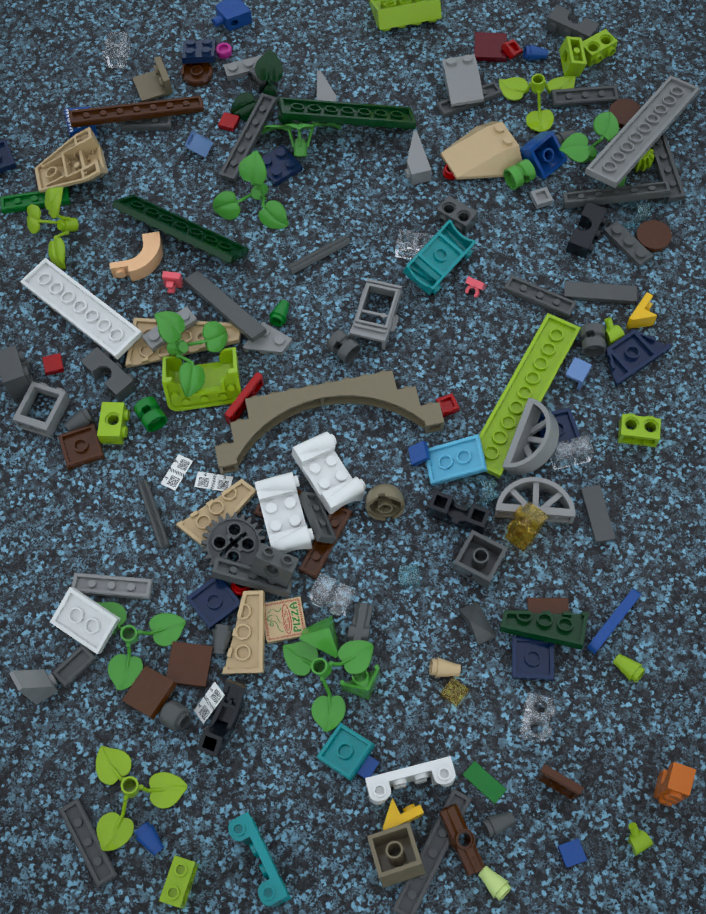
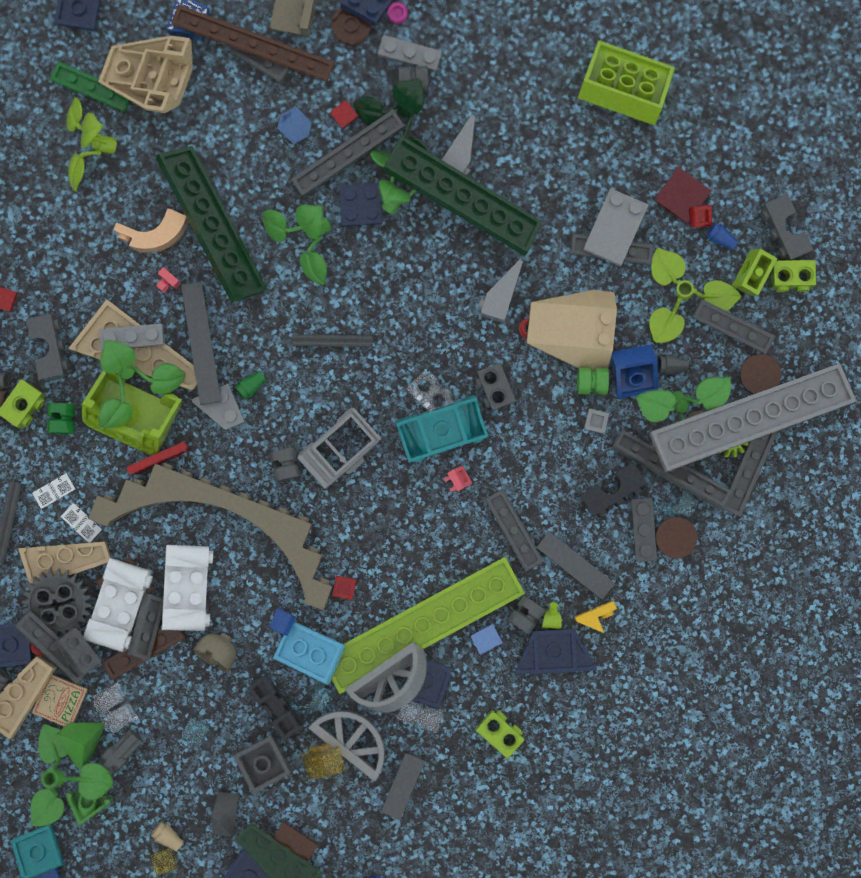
camera: 30 degrees right, 20 degrees up
(81, 308) = (61, 255): white plate -> none

